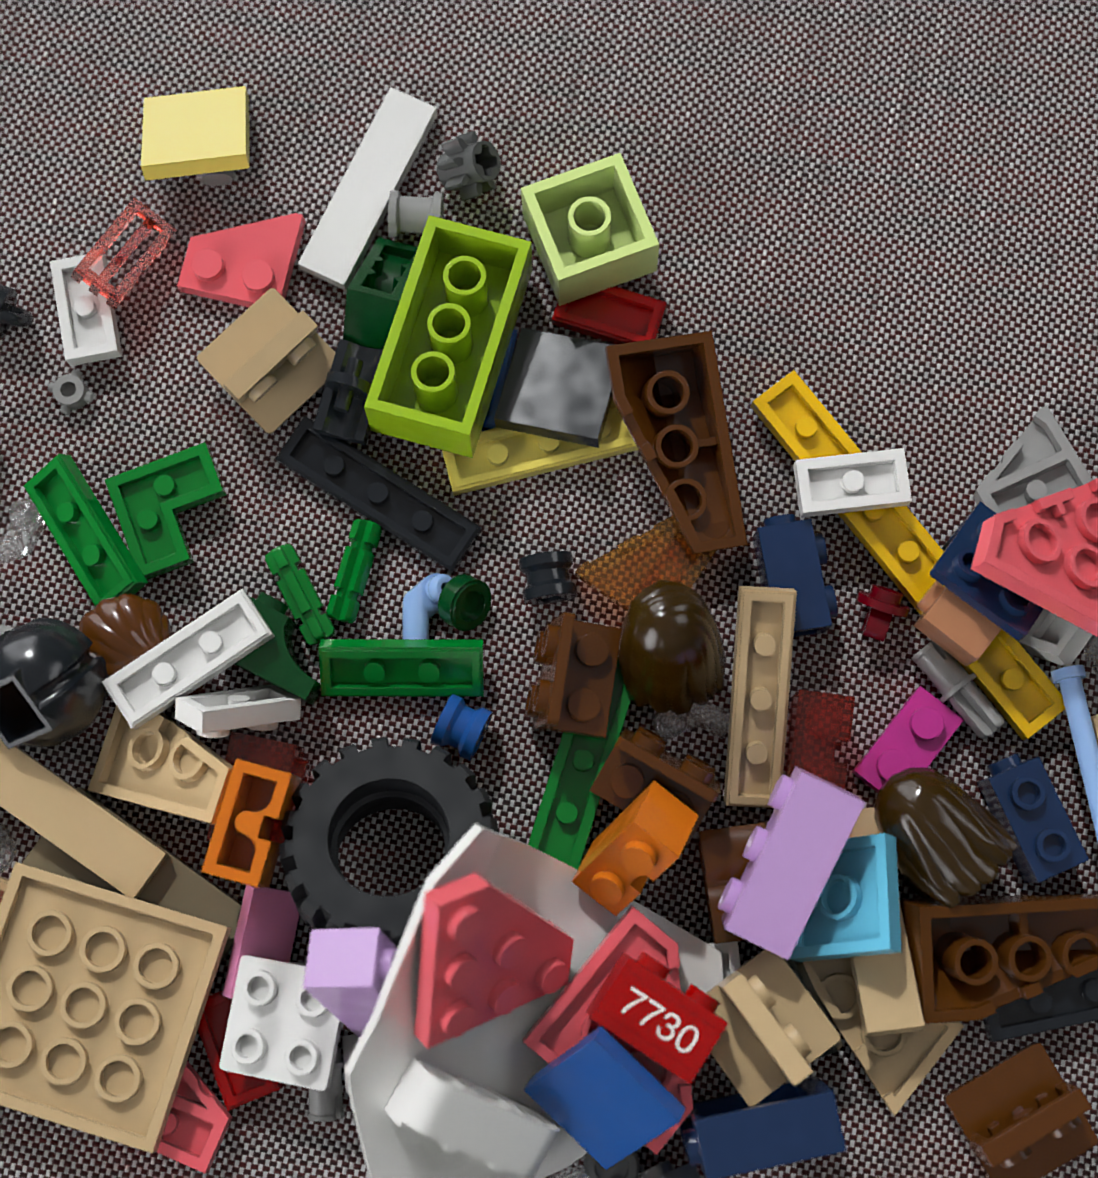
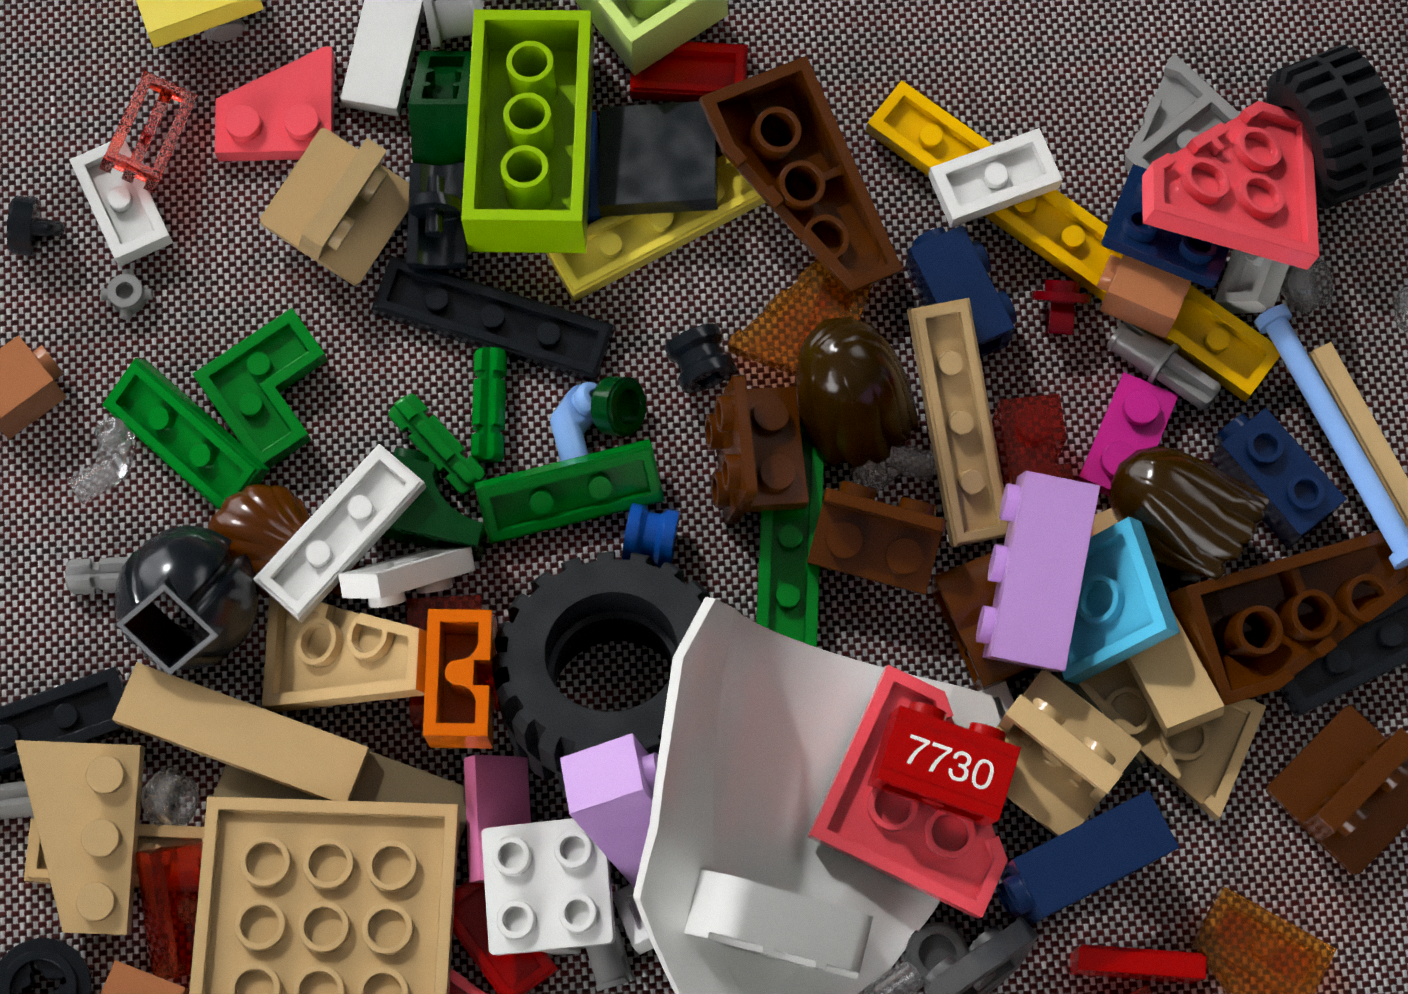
camera: 20 degrees left, 5 degrees down
(482, 958) = (748, 742): coral plate -> none
(604, 1098) = (912, 865): blue tile -> none
(635, 848) = (871, 603): orange brick -> none

